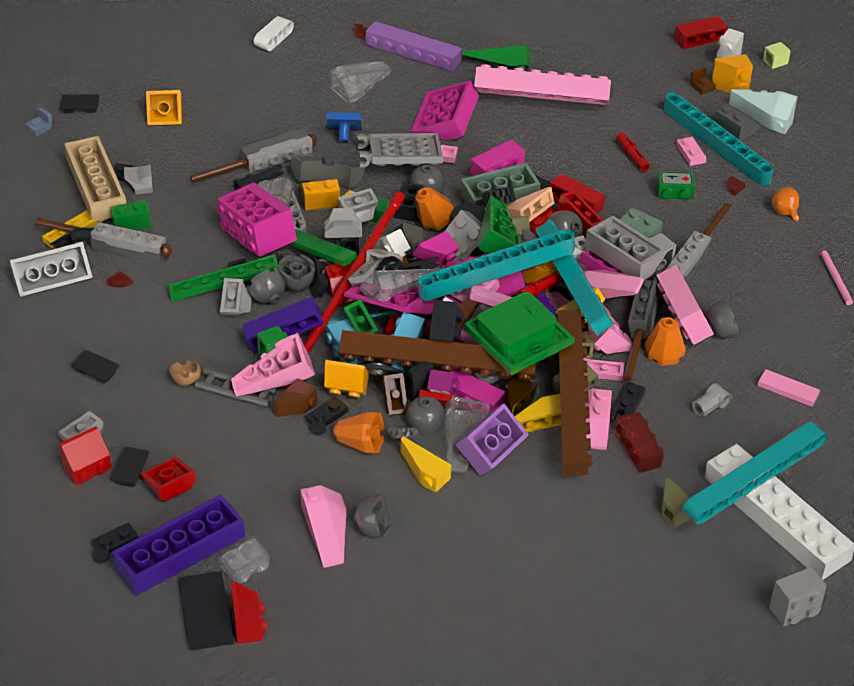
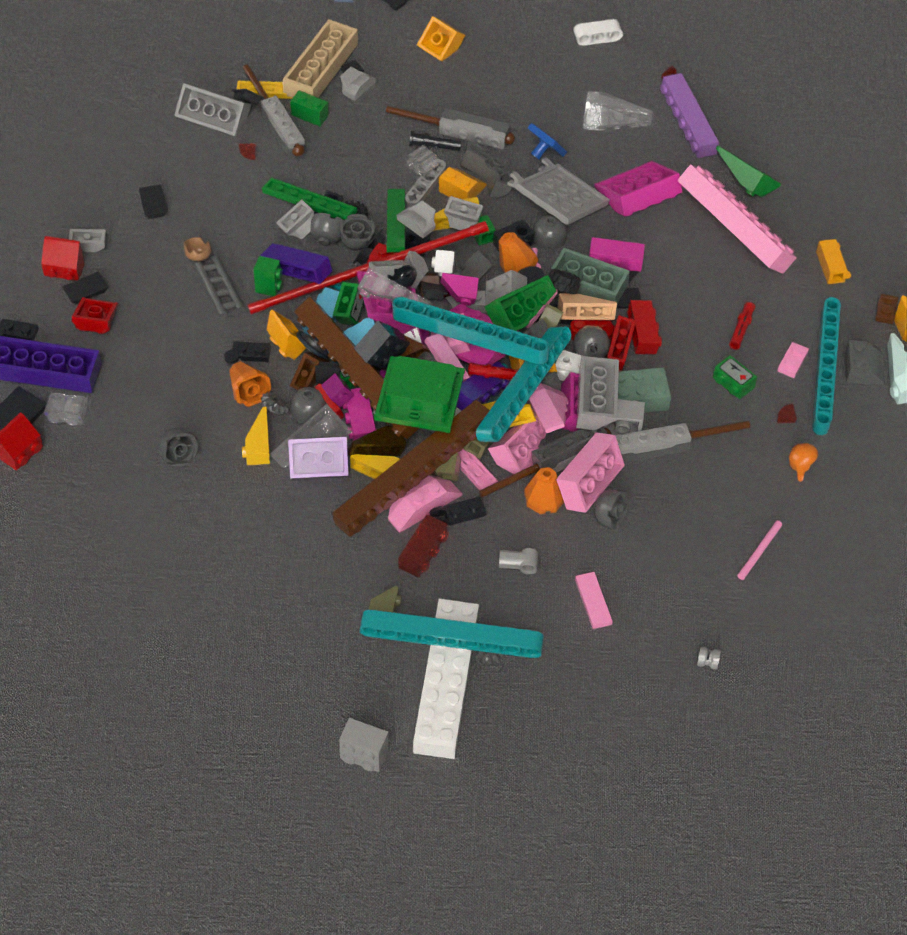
camera: 45 degrees right, 10 degrees up
(256, 219) = (377, 171): dark pink brick -> none
(276, 369) = (251, 292): bright pink wedge -> none
(296, 399) = (240, 324): reddish brown slope -> none
(326, 521) = (150, 421): bright pink wedge -> none
(449, 153) = (595, 222): bright pink plate -> none
(631, 75) = (832, 261): none -> light orange brick

